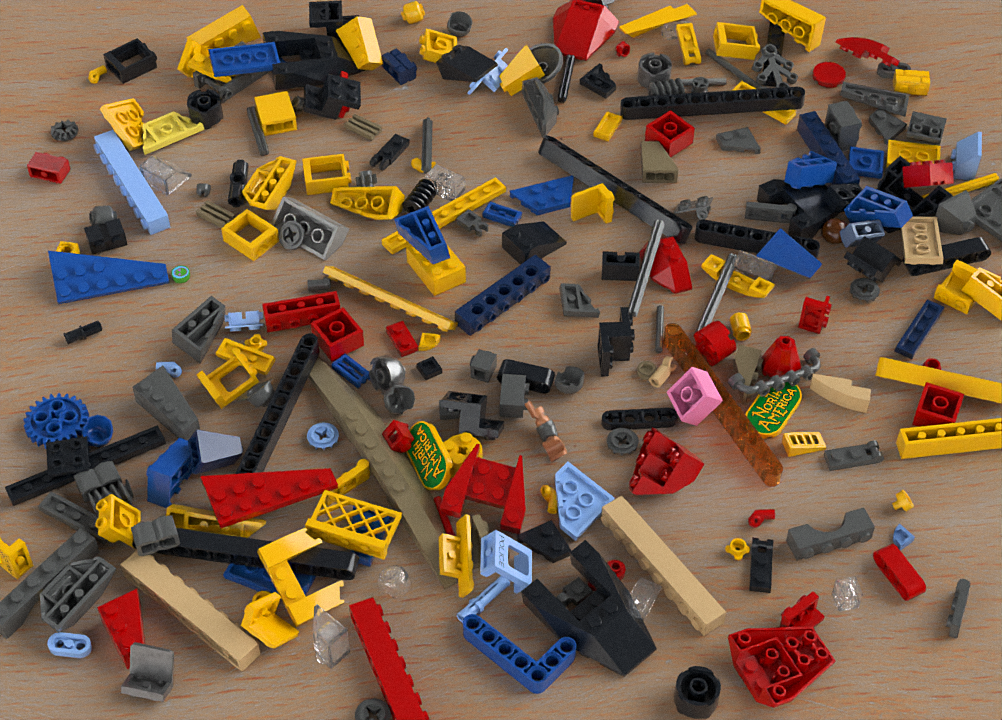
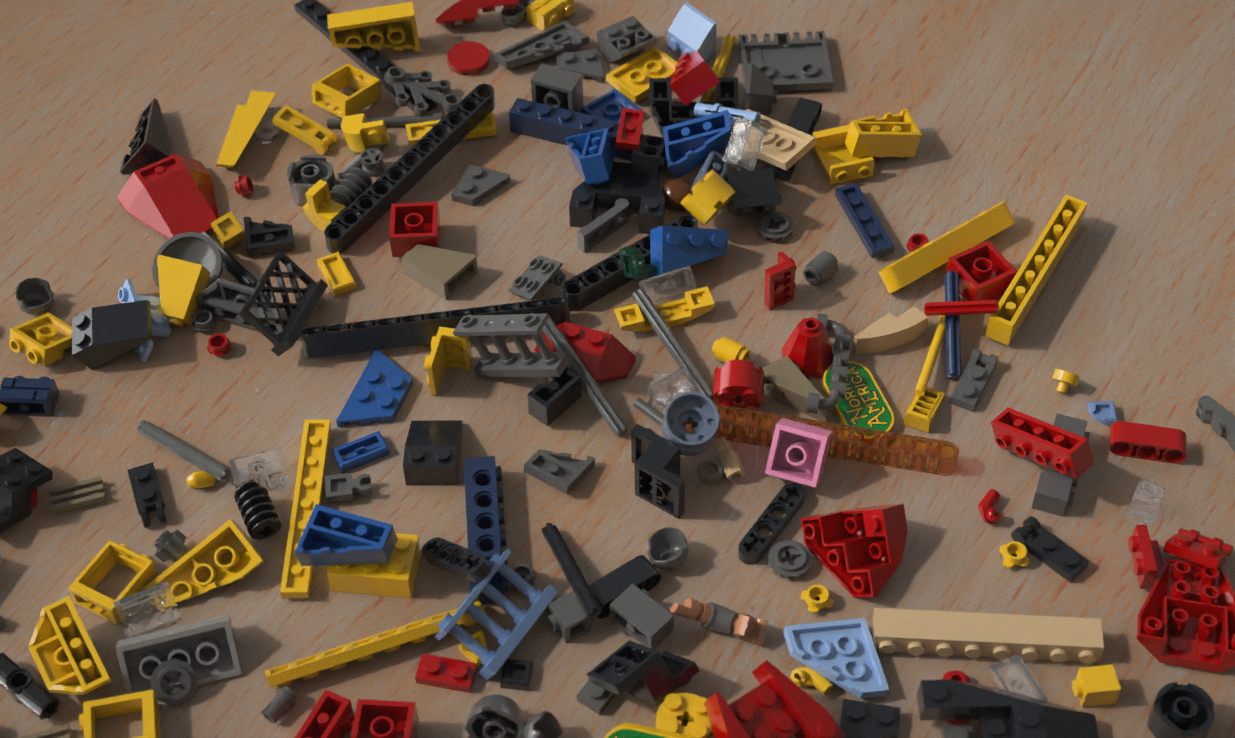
camera: 50 degrees left, 0 degrees up
(321, 197) = (148, 611): none -> clear bracket
(443, 348) = (522, 618): none -> medium blue fence
(465, 292) = (456, 559): none -> black beam
(490, 330) = (525, 571): none -> dark grey plate
(508, 113) = (219, 344): none -> red plate
(509, 348) = (571, 571): none -> black axle
(516, 96) = (203, 321): none -> dark grey plate
(560, 126) = (297, 313): none -> black fence
(581, 62) = (228, 230): none -> yellow brick
(608, 465) = (819, 592): none -> yellow plate
(623, 221) = (505, 362): none -> dark grey fence
(640, 83) = (320, 207): none -> yellow brick
(655, 322) = (695, 410): none -> sand blue wheel
(679, 639) = (1096, 686): none -> yellow brick
(683, 312) = (667, 385): none -> clear hips
(713, 67) = (362, 134): none -> yellow brick
(748, 237) = (633, 264): none -> clear green bracket
(824, 509) = (1042, 442): none -> red brick
(834, 638) = (1198, 548): none -> red plate
(836, 239) = (708, 197): none -> yellow brick
(845, 171) = (630, 129): none -> red plate
(854, 330) = (820, 268): none -> dark grey brick
(881, 418) = (953, 329): none -> dark blue axle
(891, 410) = (961, 307): none -> red axle
(892, 412) = (931, 357): none -> yellow bar
(896, 229) = (744, 145): none -> clear brick
(916, 206) = (705, 109): none -> light blue pin

